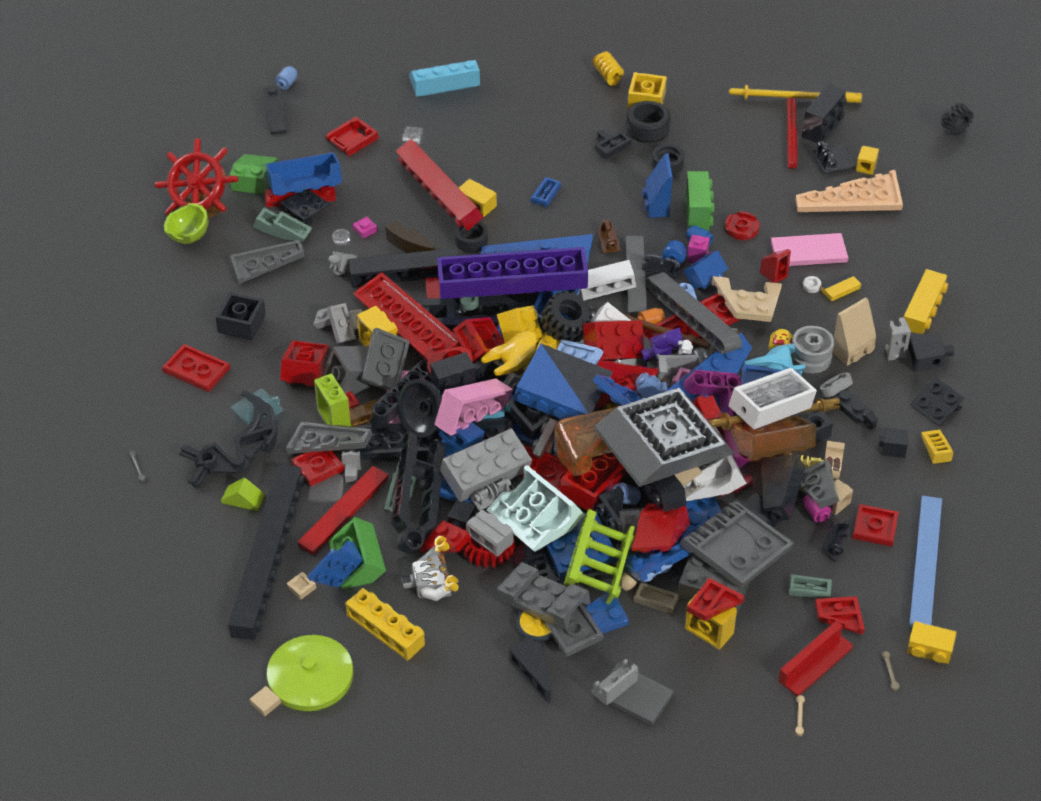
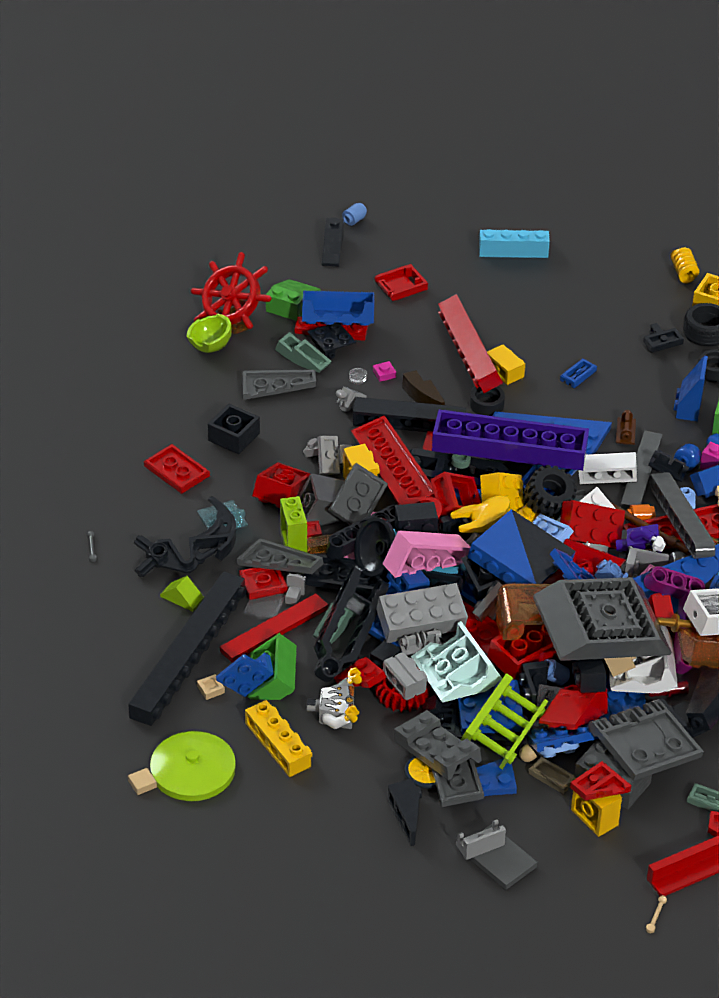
camera: 15 degrees right, 5 degrees down
(413, 133) = (463, 292): clear tile -> none

